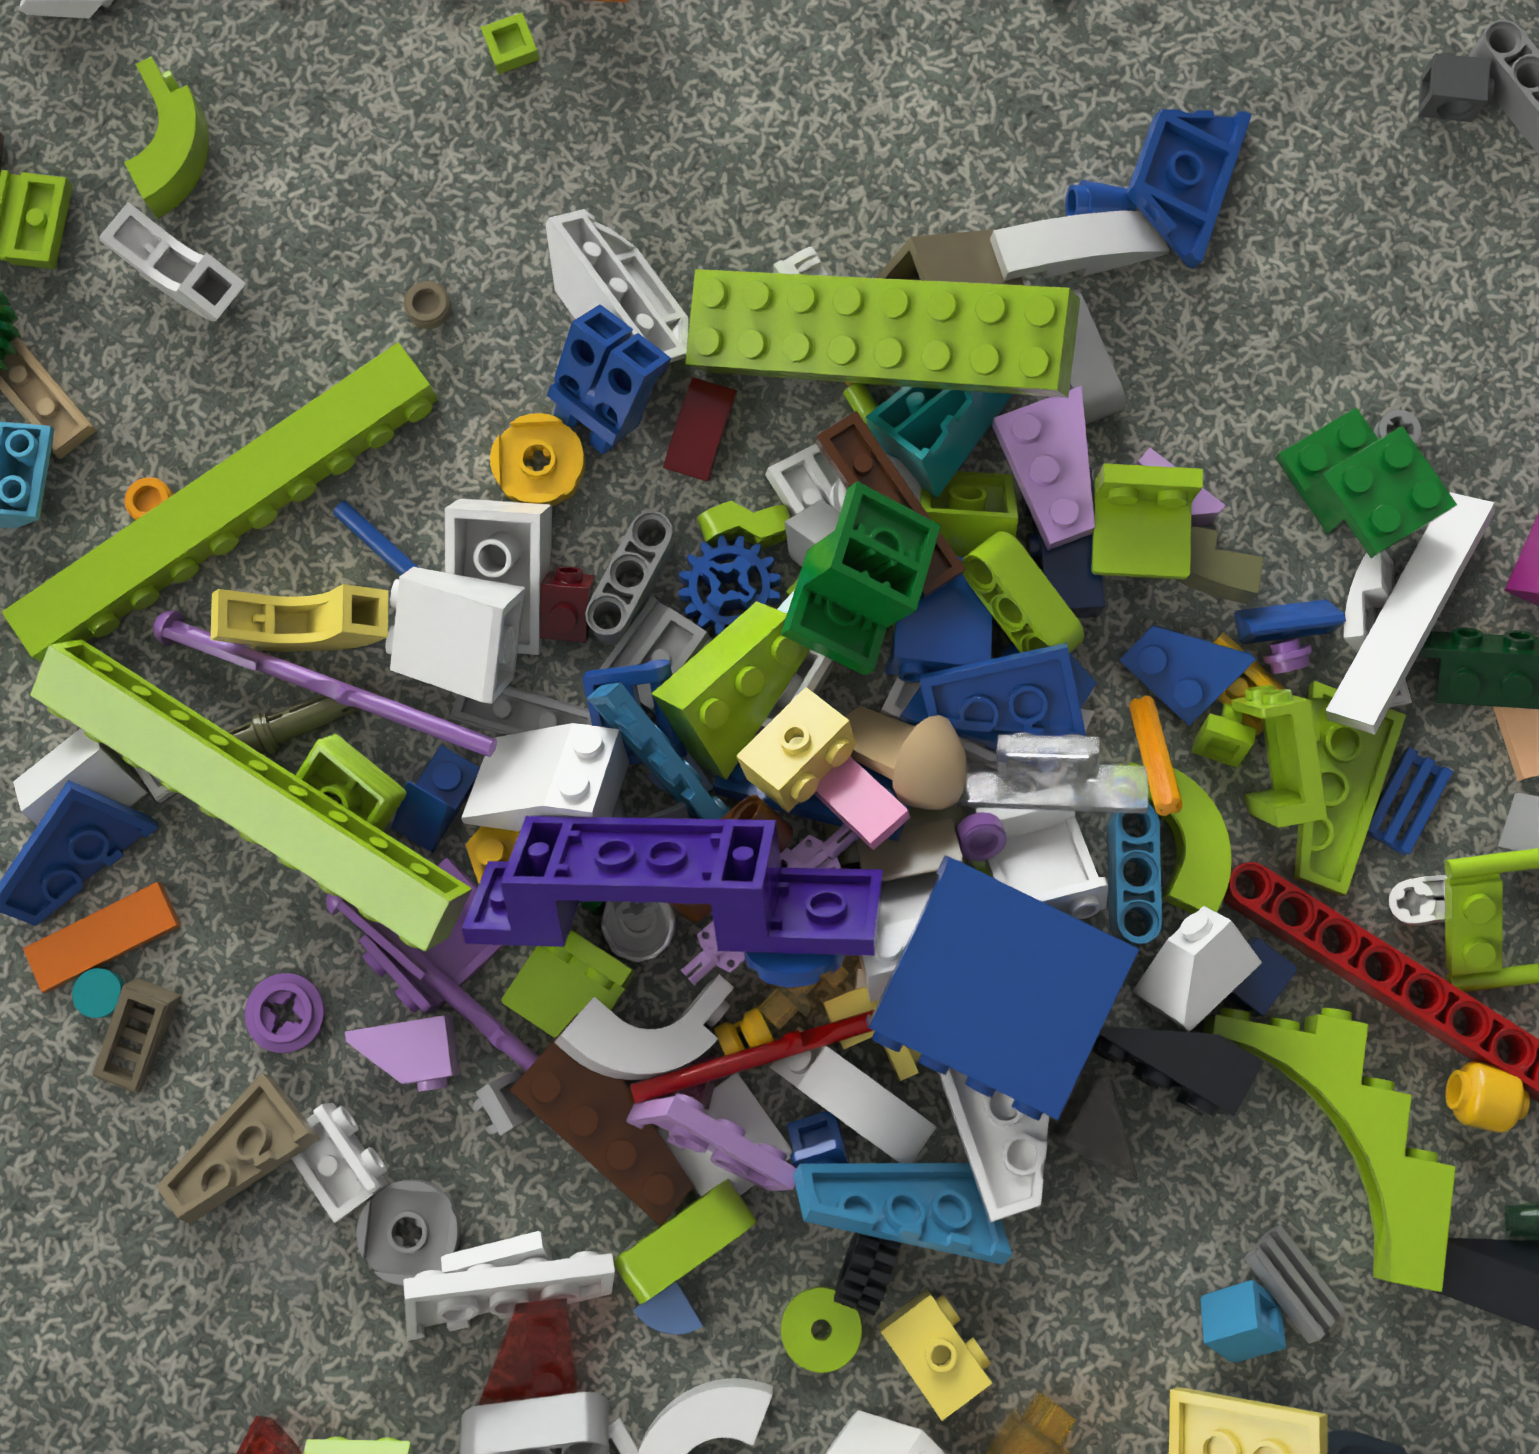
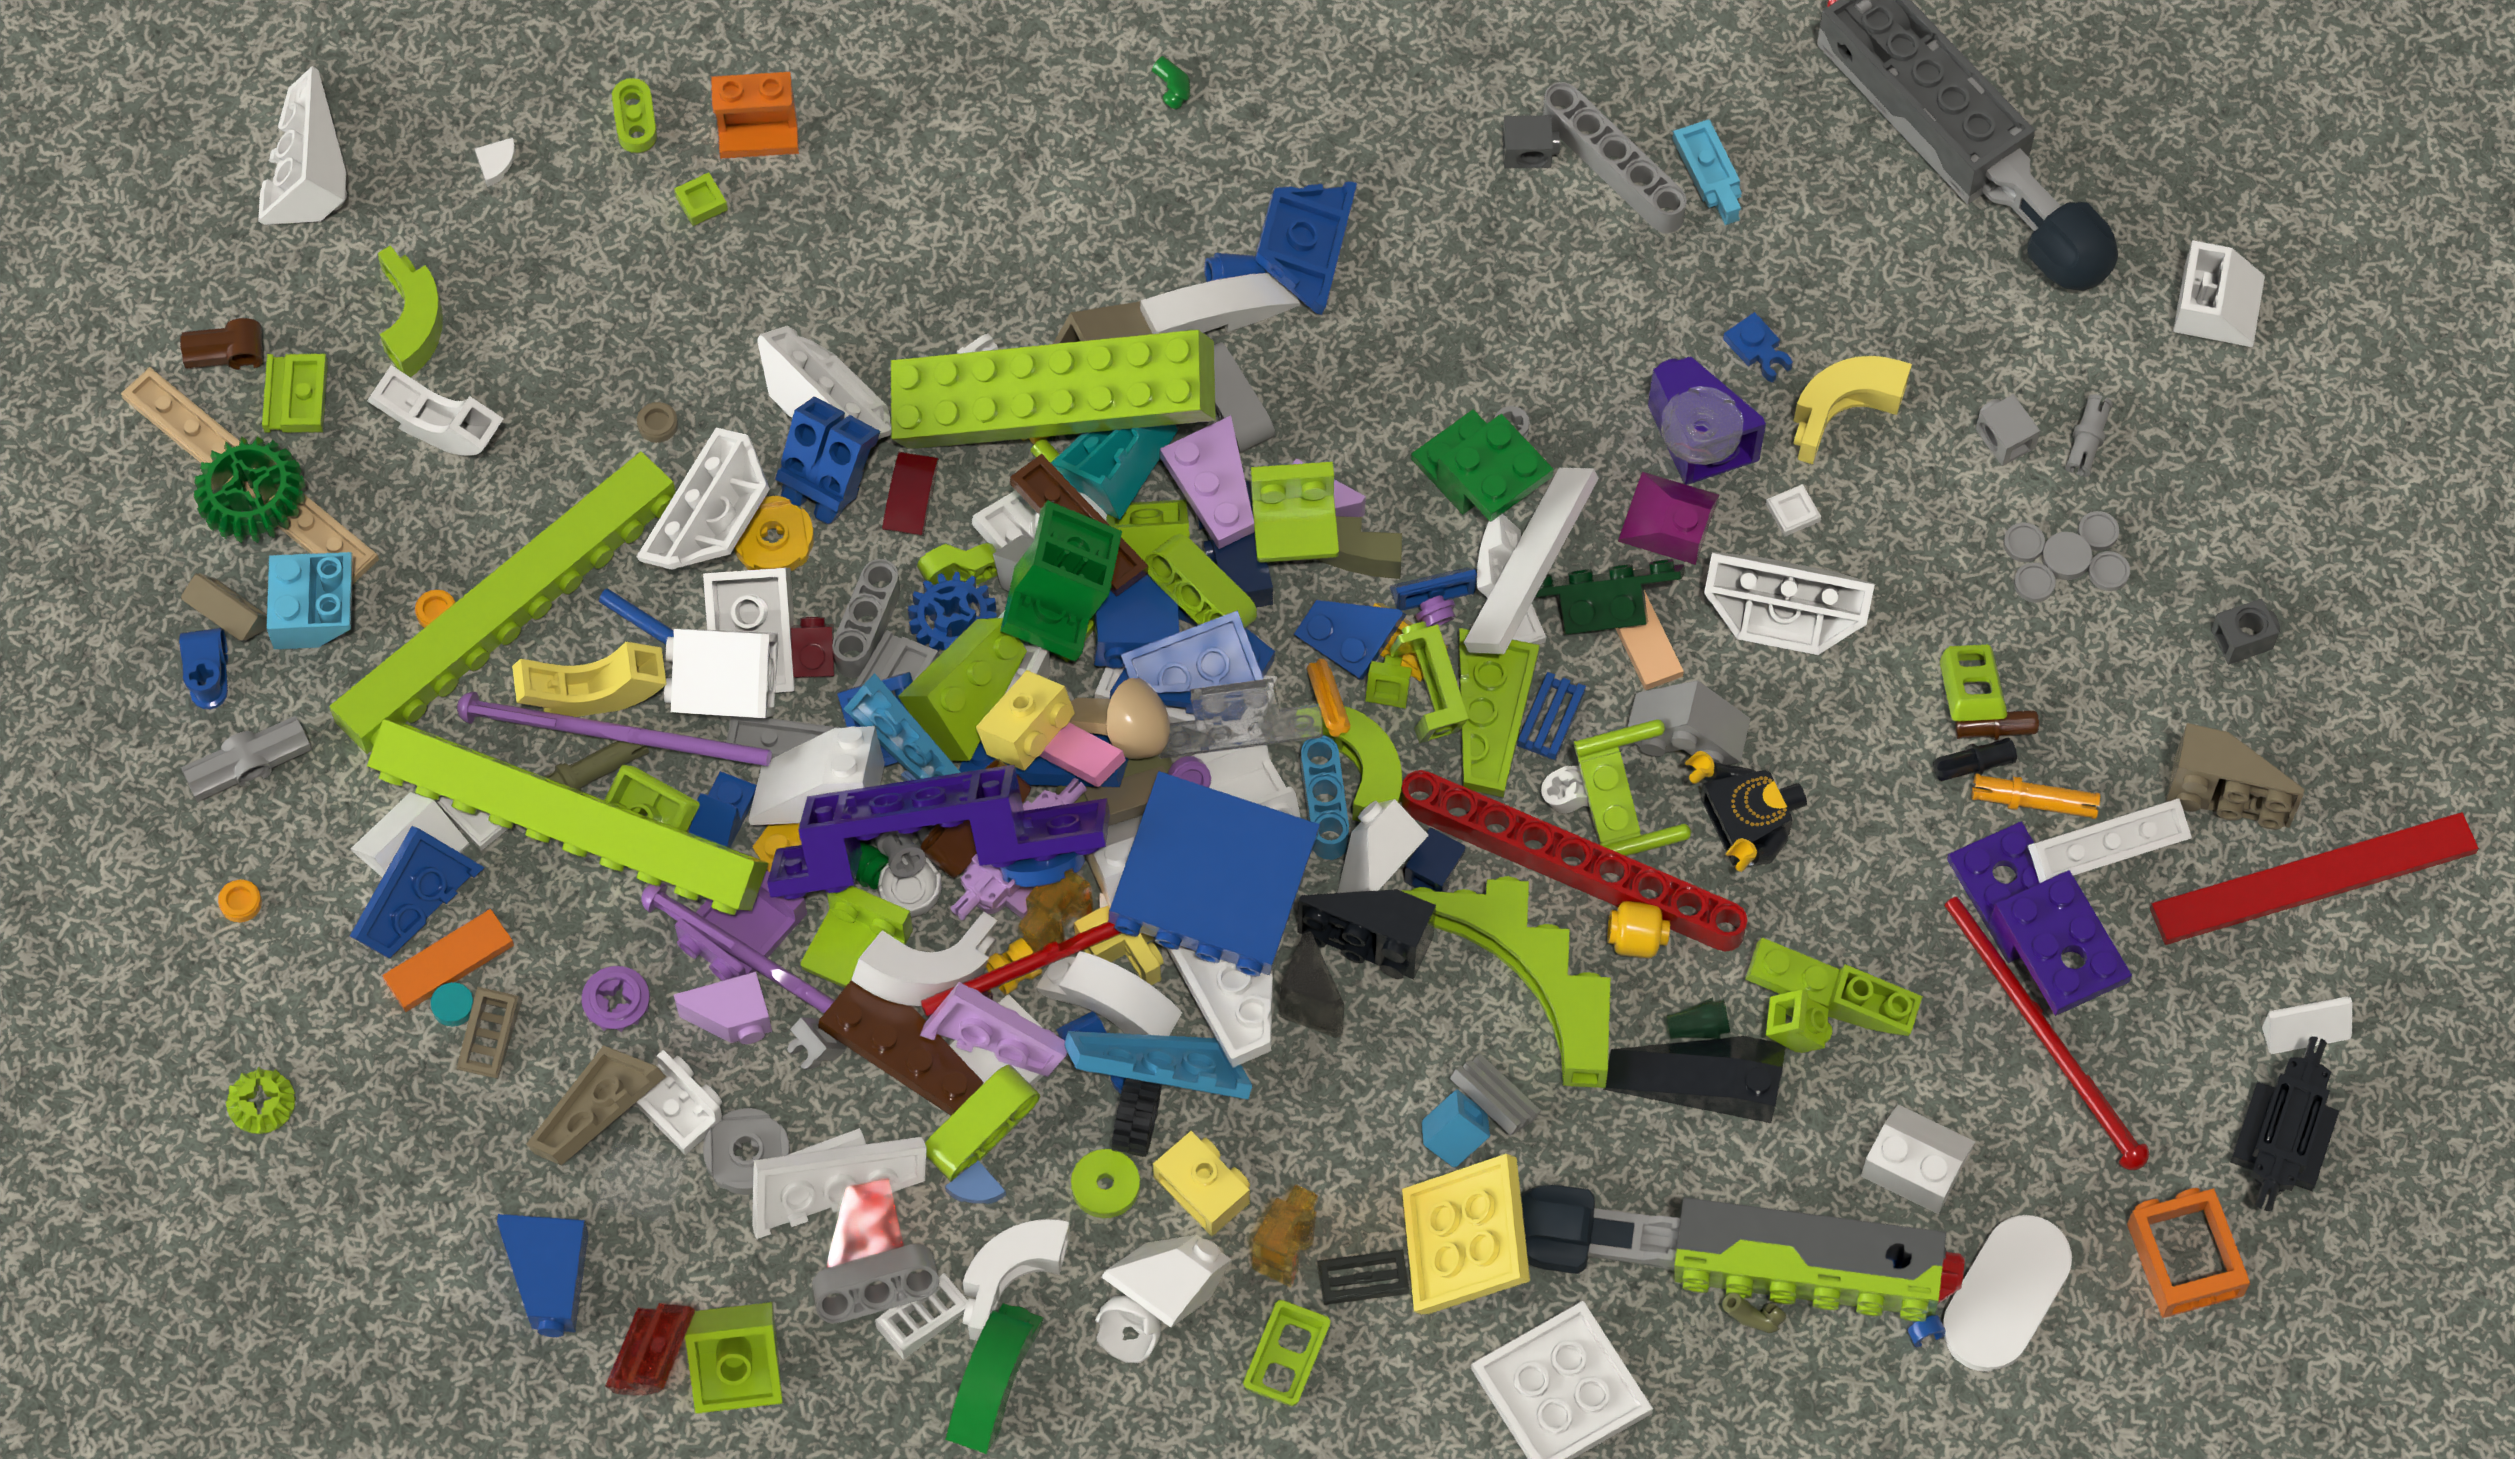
camera: 10 degrees left, 15 degrees down
(153, 1355) = (547, 1267): none -> blue slope
(465, 421) = (709, 505): none -> white wedge

